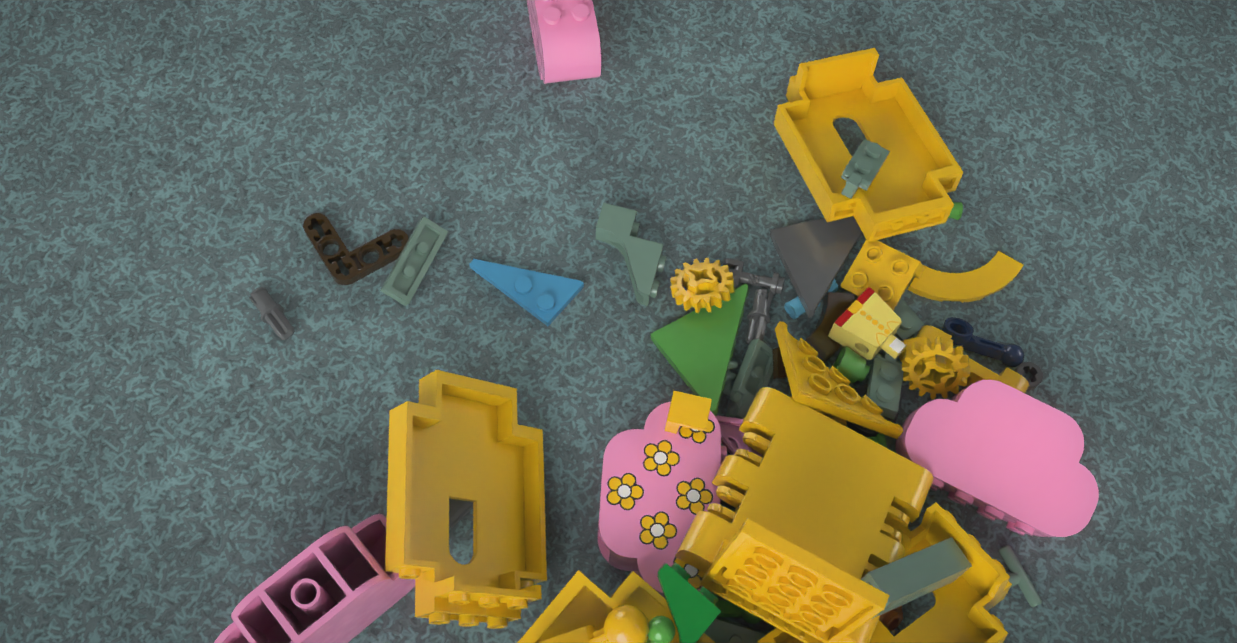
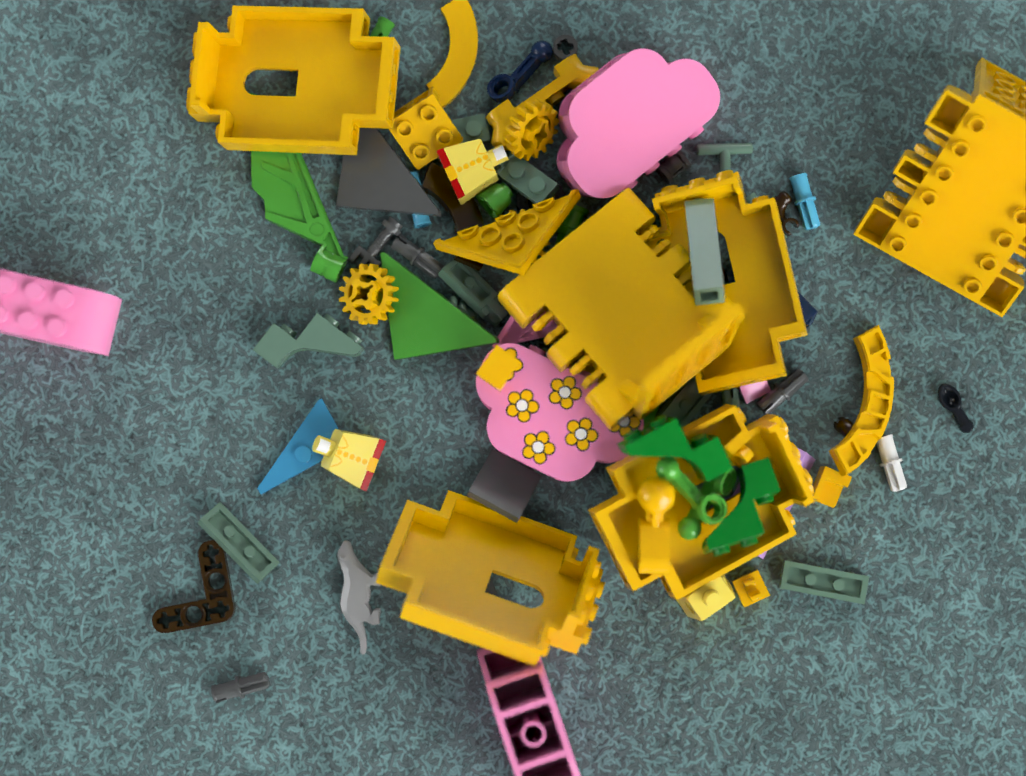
camera: 65 degrees left, 20 degrees up
(399, 385) = (357, 593): none -> light grey animal
(538, 324) = (350, 456): none -> light yellow torso
(569, 484) = (504, 485): none -> dark grey tile
(751, 198) = (296, 206): none -> bright green wing
(863, 167) = (322, 99): sand green hinge -> none
(976, 526) = (672, 167): none -> dark grey bush

